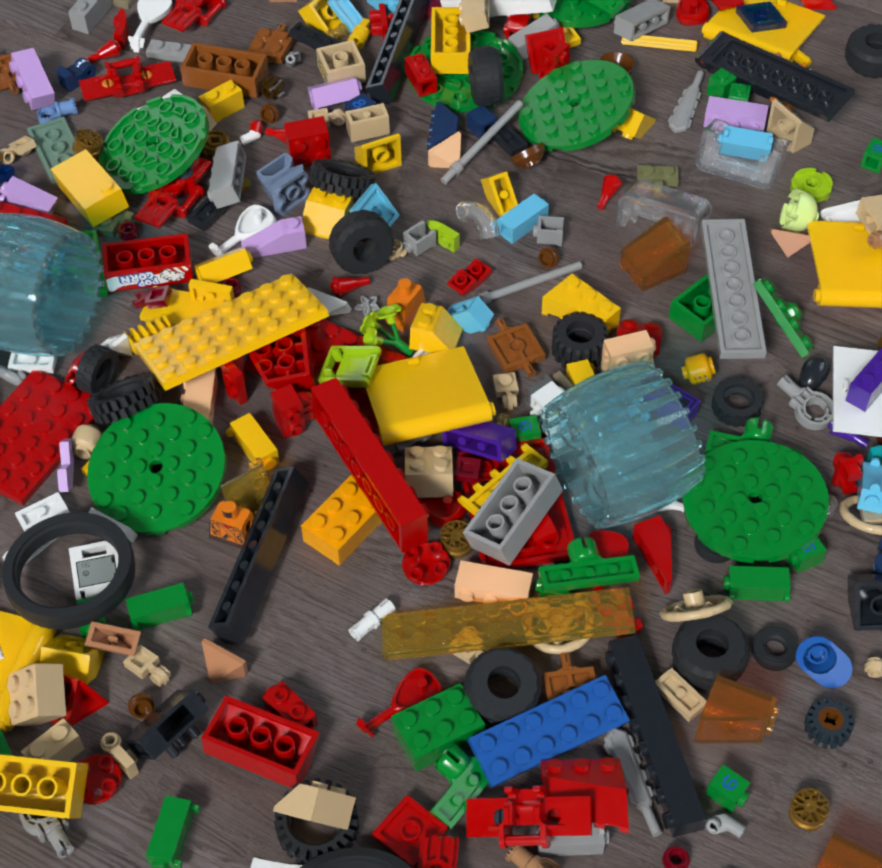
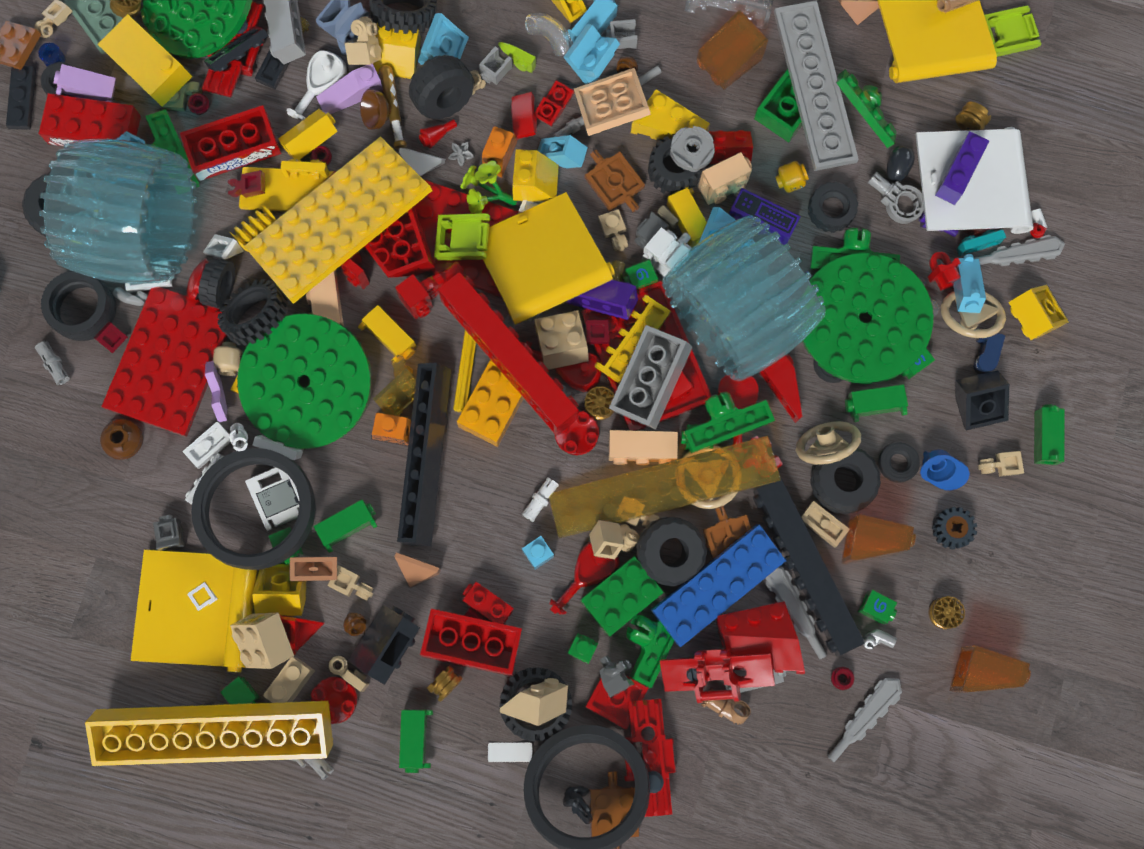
camera: 15 degrees left, 25 degrees up
(74, 499) = (242, 435): none -> white pin
(176, 188) = (236, 49): none -> black plate
(221, 780) = (445, 683): none -> pearl gold wheel
(293, 255) = (374, 109): none -> reddish brown piece
(298, 201) = (366, 47): none -> tan brick
(312, 239) = (389, 90): none -> pearl gold piece
(324, 485) = (464, 373): none -> yellow axle
(356, 667) = (538, 552): none -> medium azure brick
(382, 773) = (583, 648): none -> green brick
(410, 803) = (614, 676): none -> dark grey piece
(436, 282) = (523, 115): none -> red slope
(436, 662) = (611, 538): none -> tan brick
(514, 239) = (591, 54): none -> medium azure bracket
(526, 278) = (612, 101): none -> light nougat plate
(597, 332) = (695, 160): none -> light grey plate

